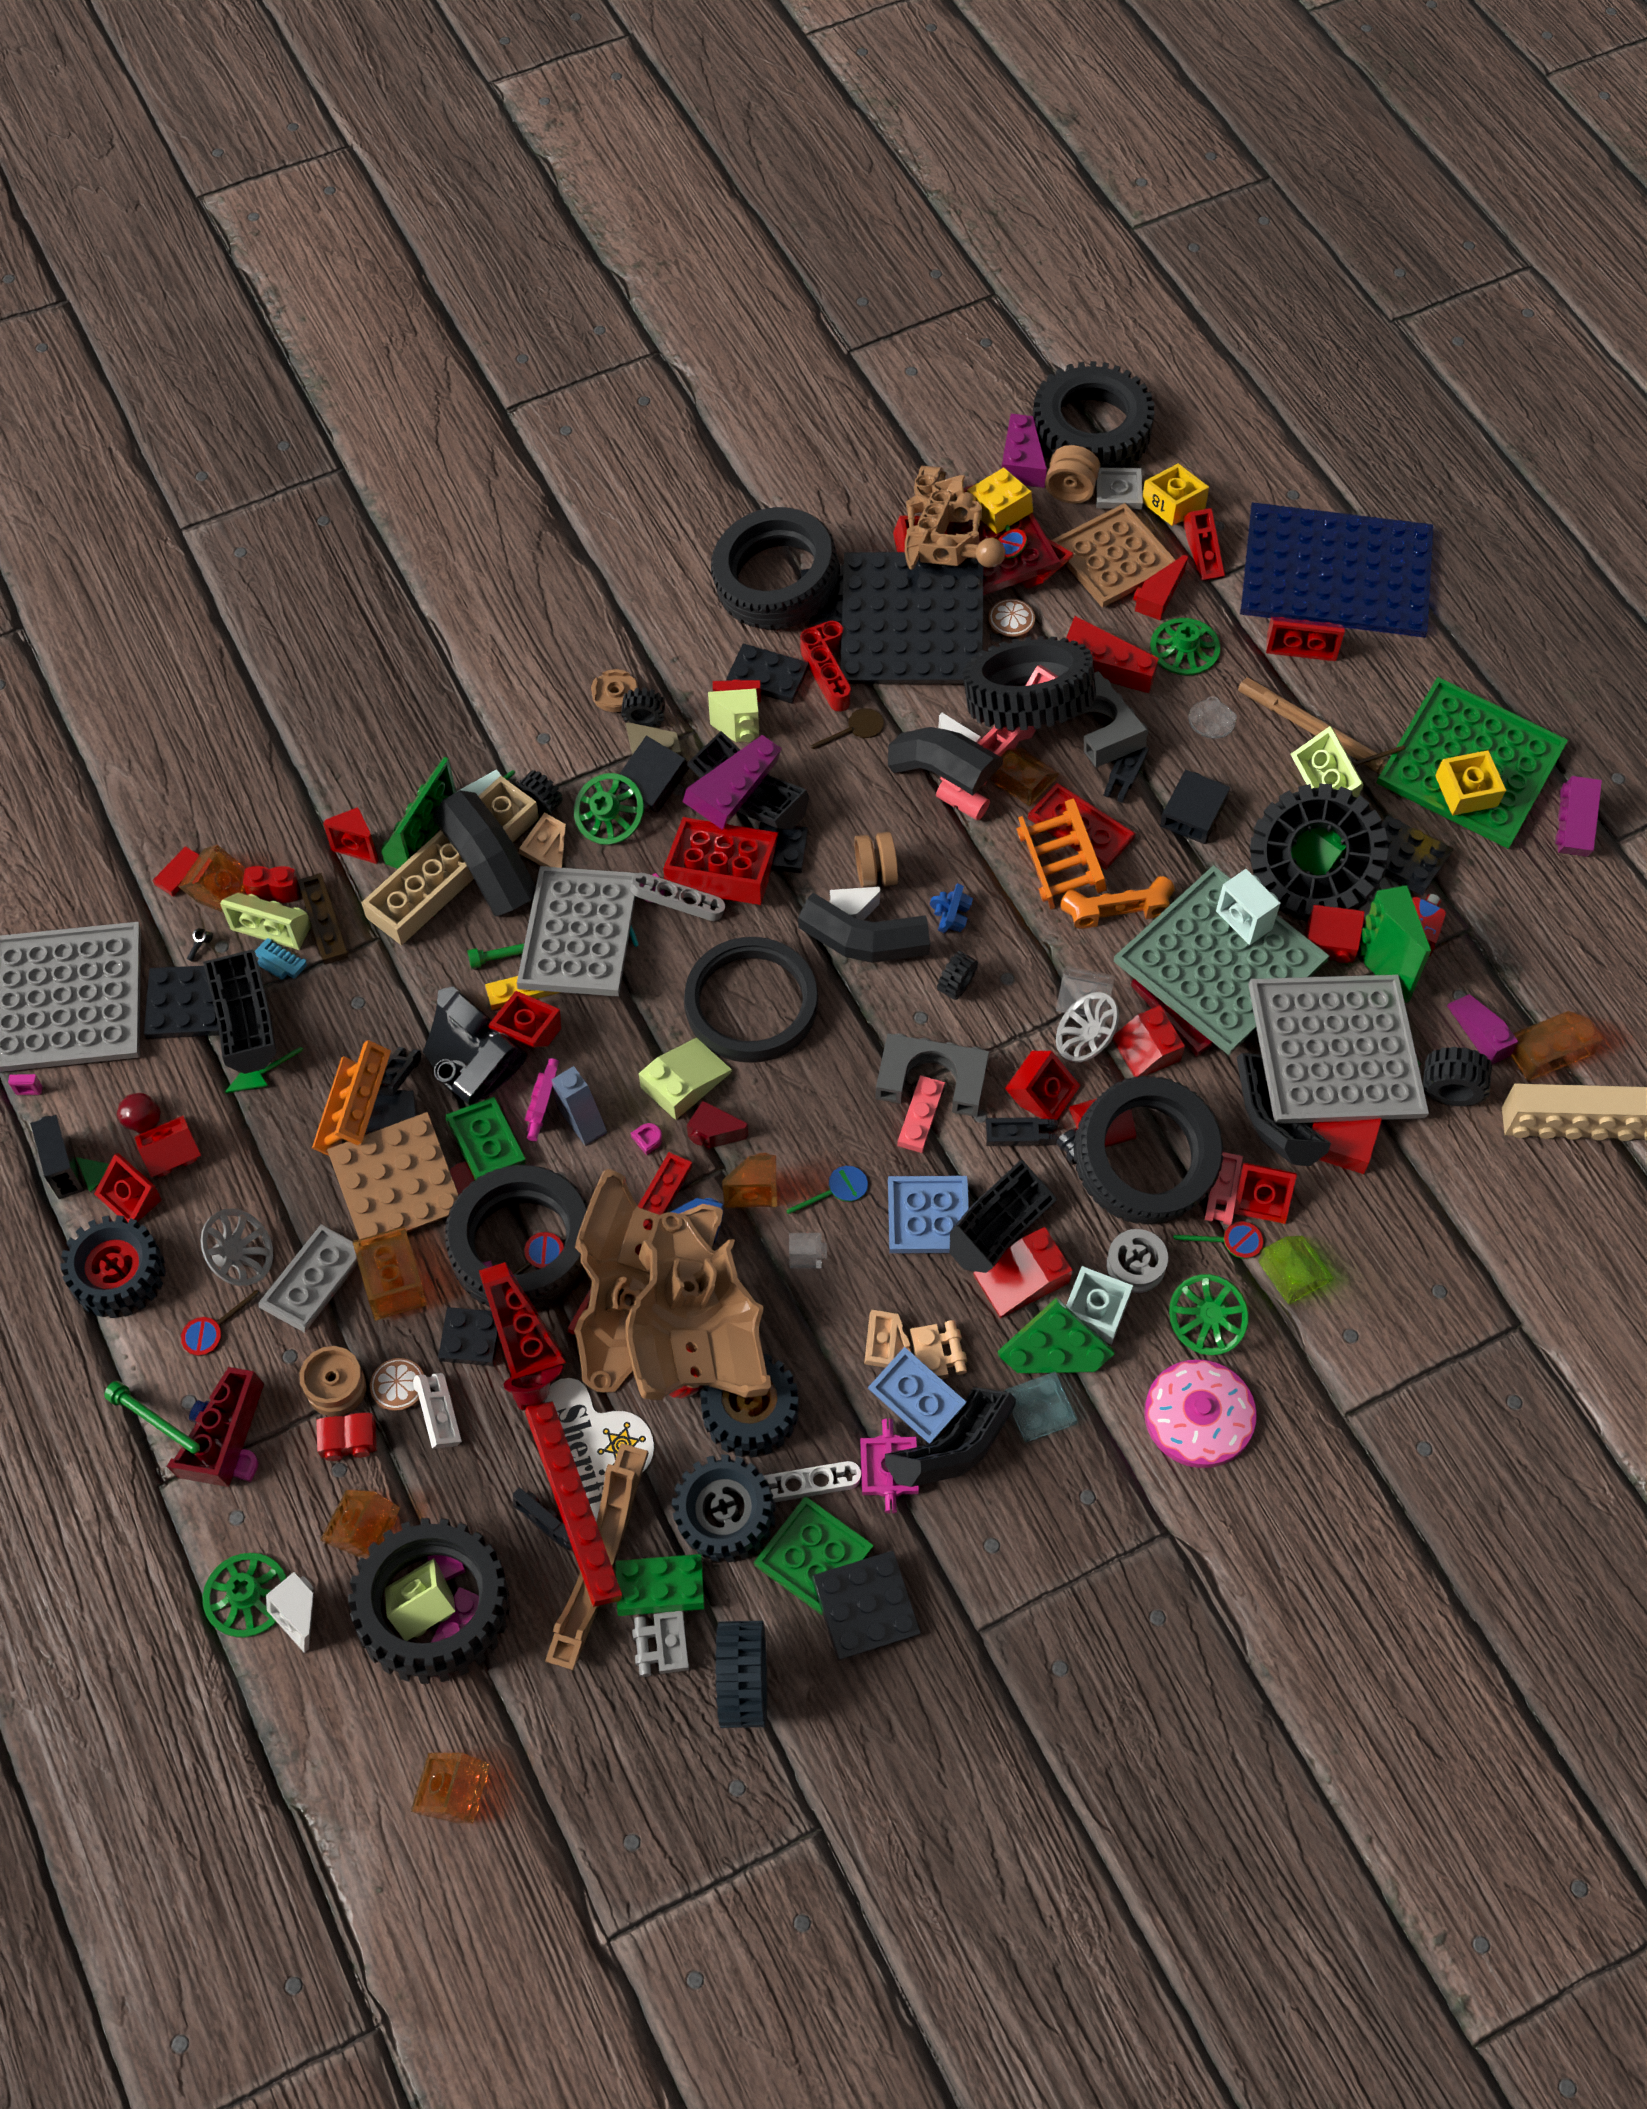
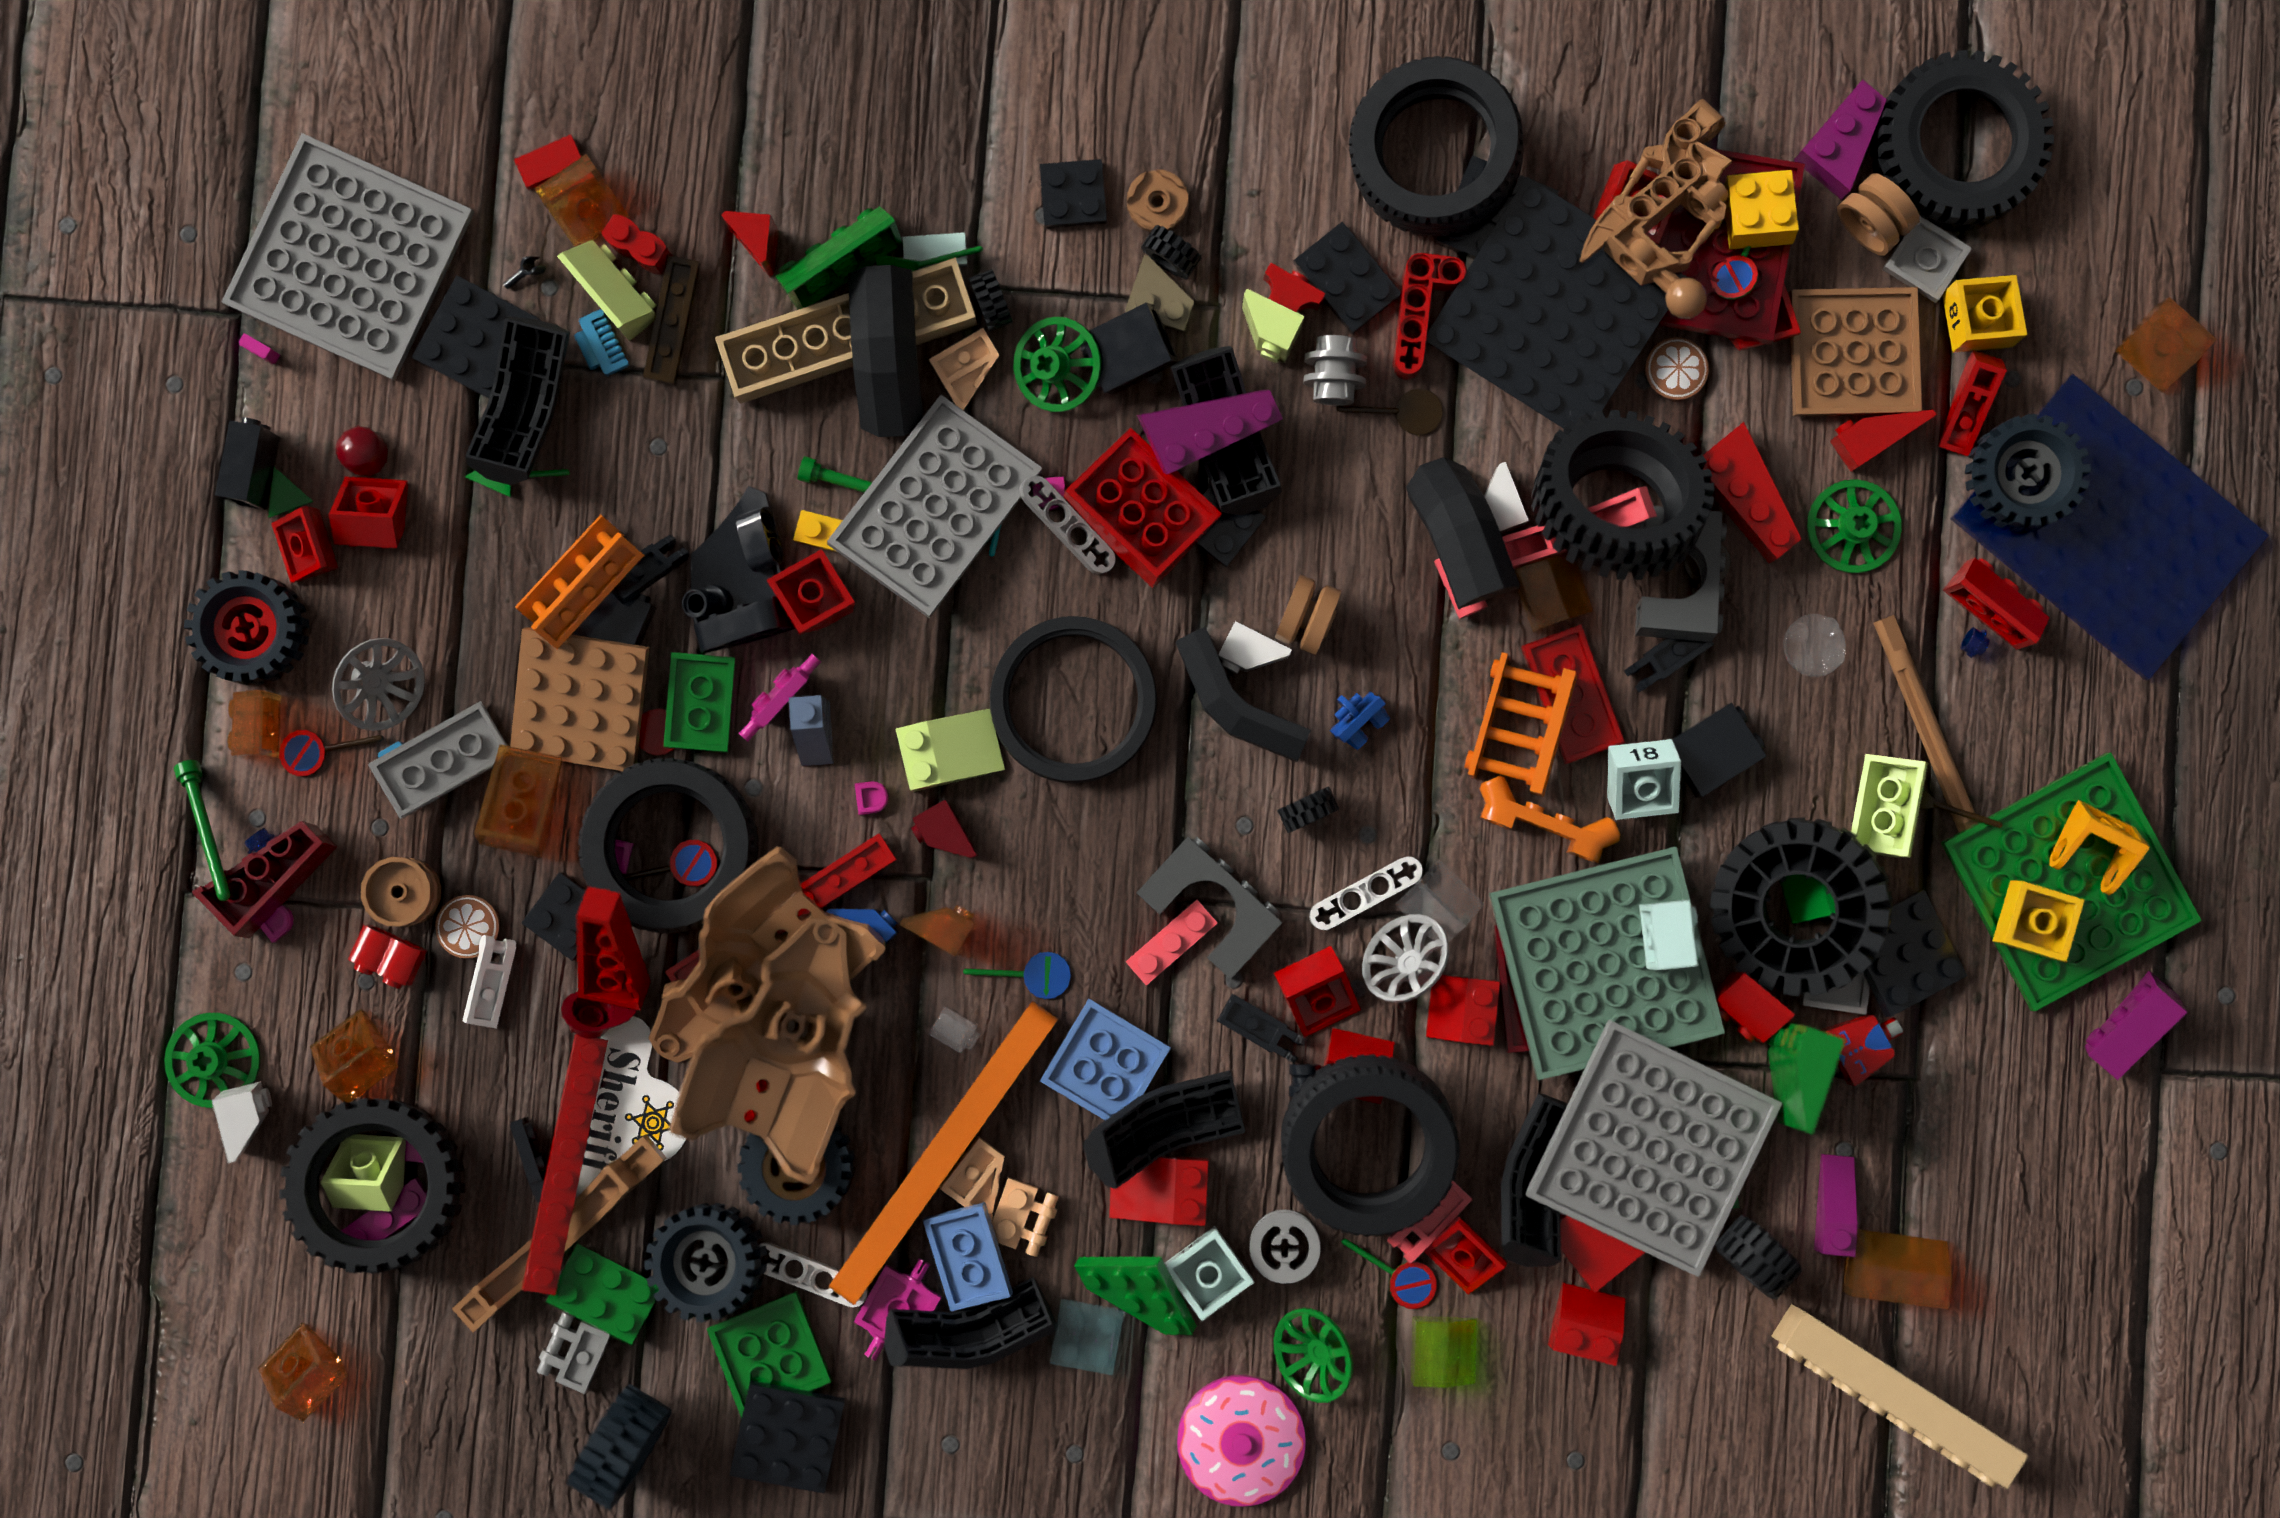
camera: 35 degrees right, 25 degrees up
(152, 1328) = (255, 724): none -> clear orange slope
(555, 715) = (1073, 193): none -> black plate
(796, 718) = (1335, 370): none -> light grey piece
(851, 1339) = (943, 1153): none -> orange beam
(1027, 1009) = (1364, 890): none -> white beam
(1163, 839) = (1643, 779): none -> light aqua brick
(1270, 540) = (2052, 457): none -> black wheel
(1293, 460) = (2165, 344): none -> clear orange slope
(1308, 666) = (1975, 642): none -> clear blue plate
(1380, 1194) = (1588, 1324): none -> red slope
(1466, 707) = (2089, 819): none -> light orange hose

